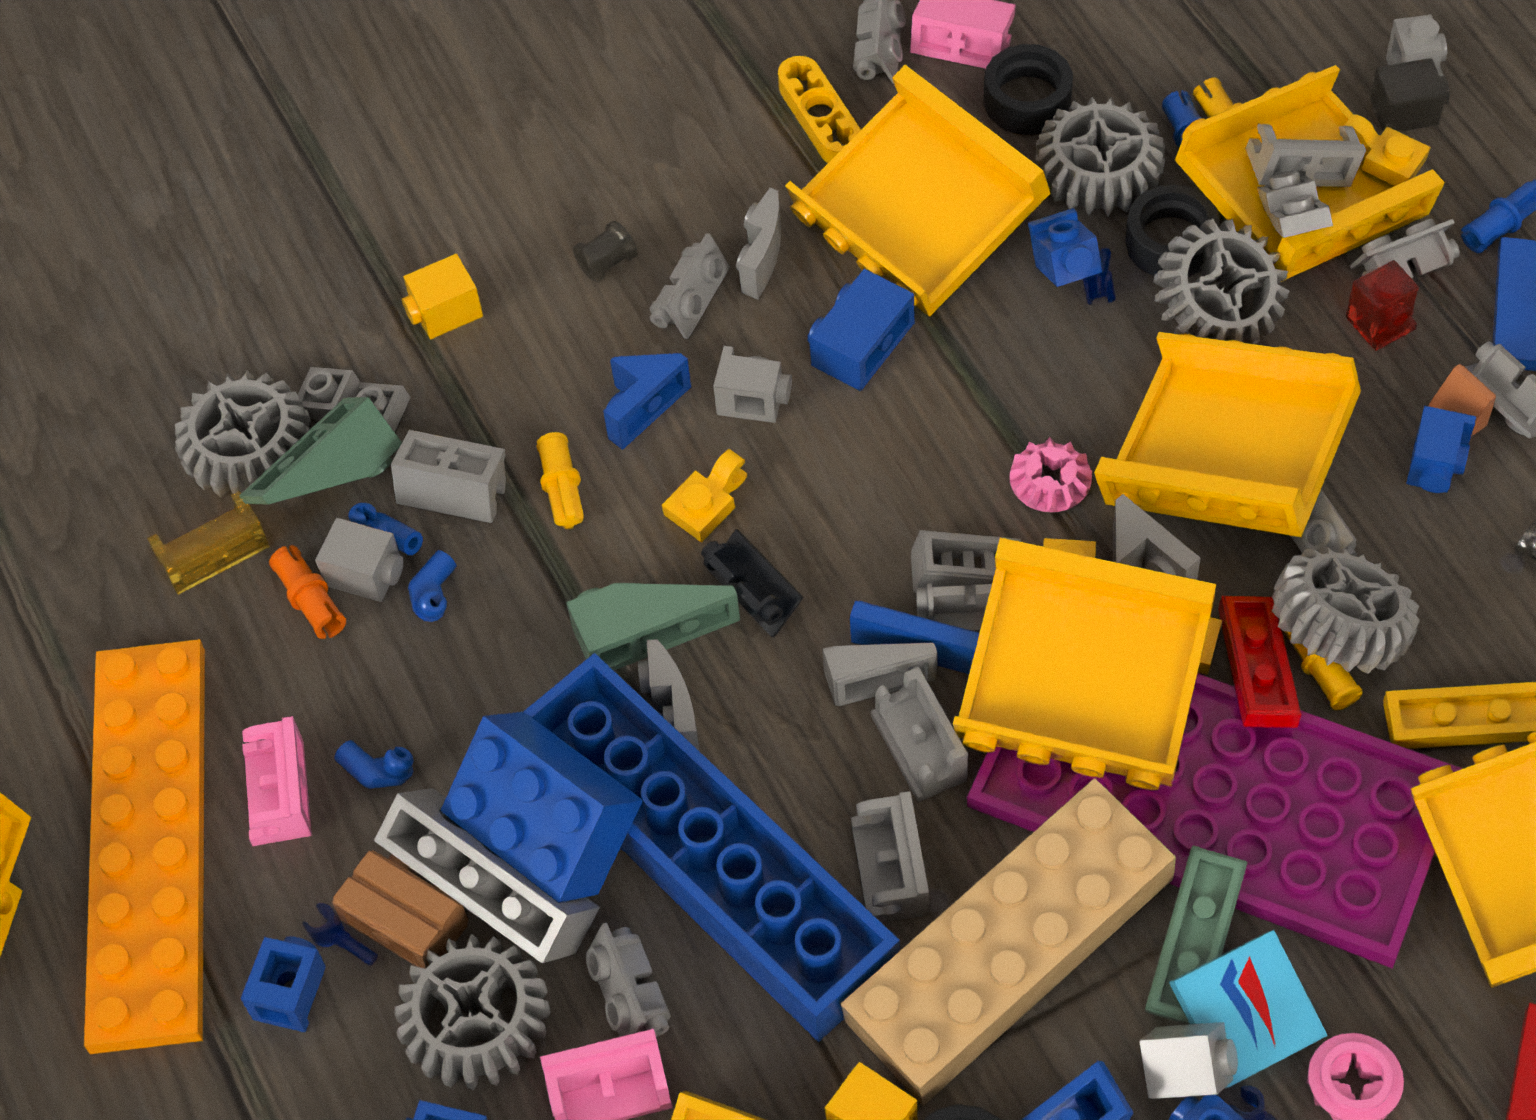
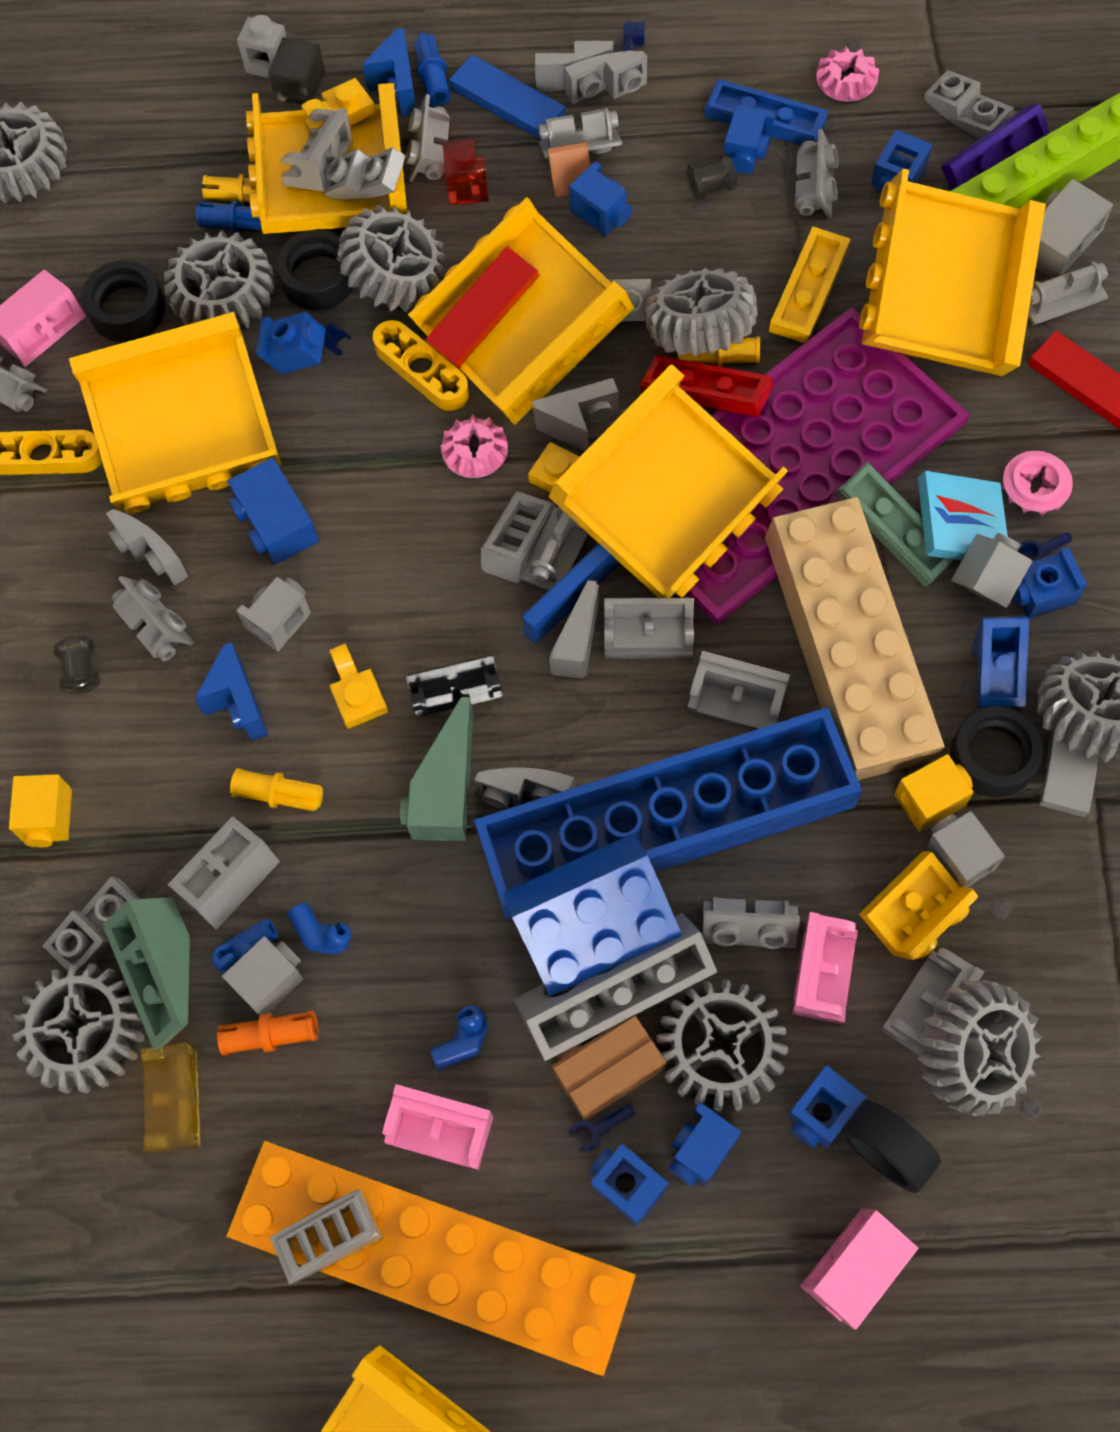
camera: 65 degrees left, 10 degrees up
(146, 752) = (364, 1218): none -> light grey slope
(354, 1040) = (702, 1147): none -> blue brick
(1123, 399) = (425, 382): none -> yellow beam
(1212, 395) = (482, 307): none -> red tile
(1474, 180) = (391, 65): none -> blue slope

